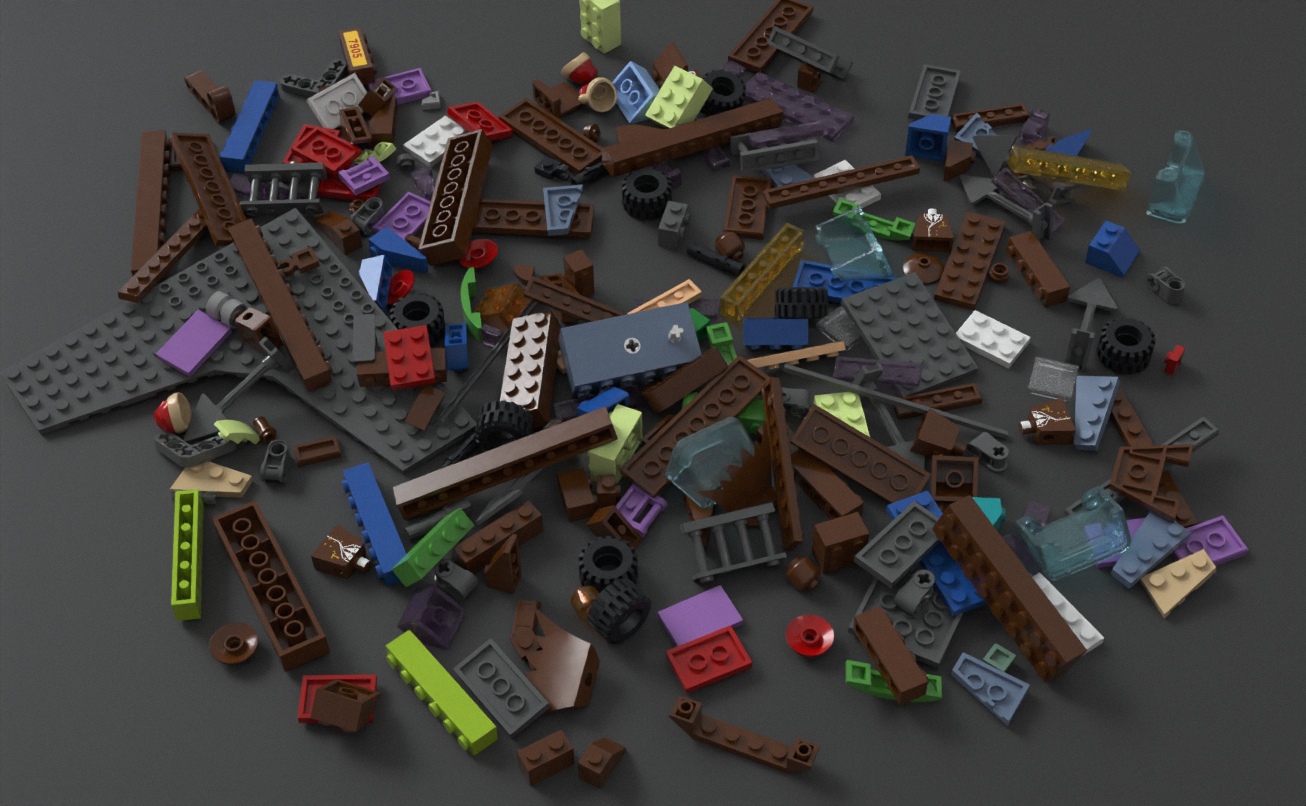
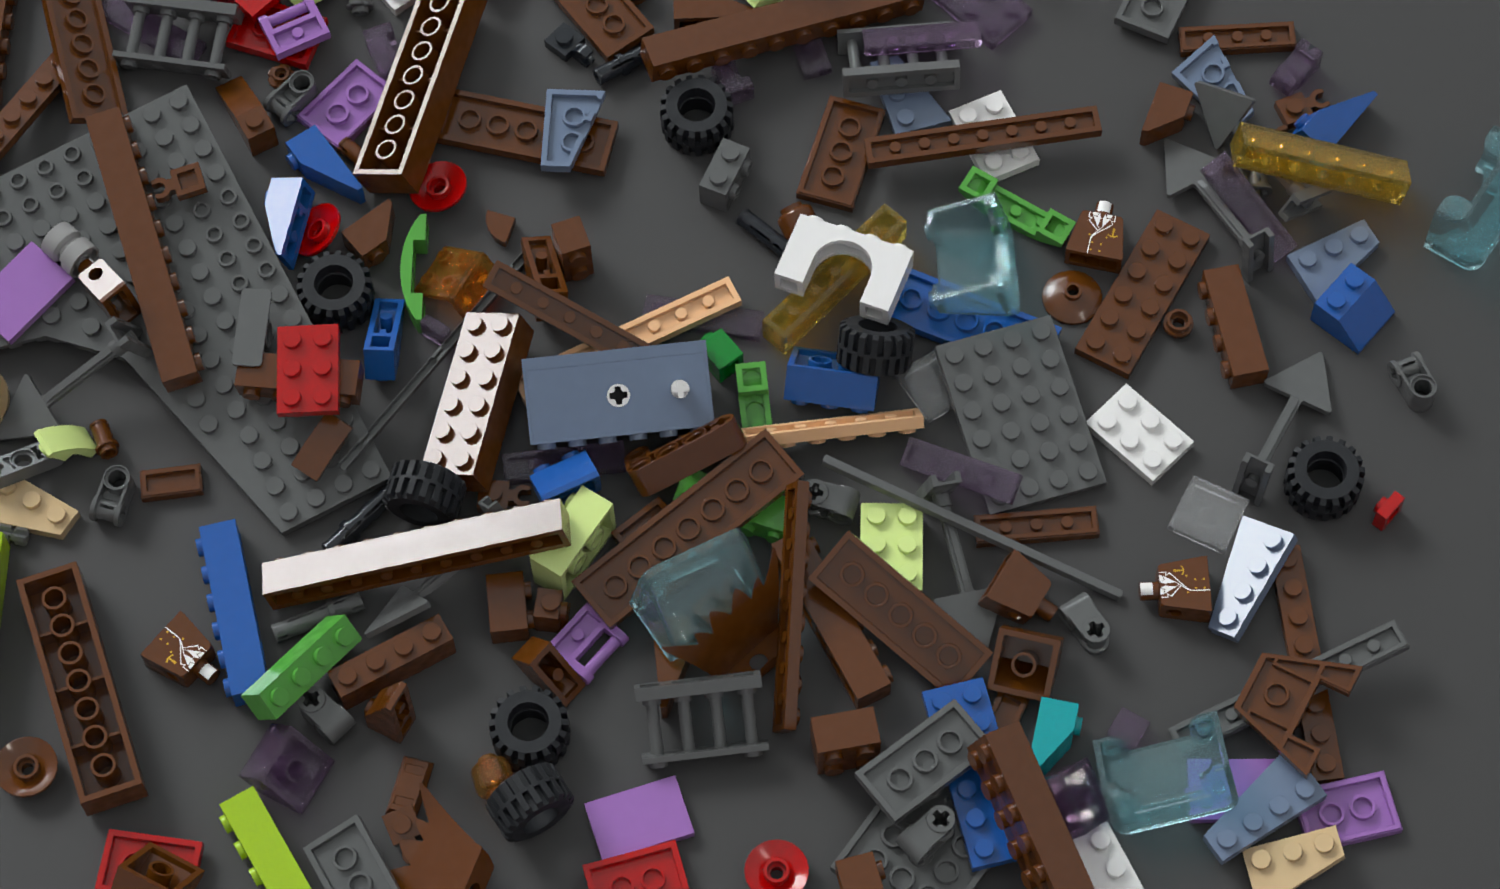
camera: 10 degrees right, 15 degrees up
(436, 284) = (371, 235): none -> reddish brown slope
(749, 244) = (817, 240): none -> white arch
(803, 574) = (788, 777): reddish brown head -> none
(928, 137) = (1131, 73): blue slope -> none
(1084, 227) = (1324, 260): none -> sand blue wing

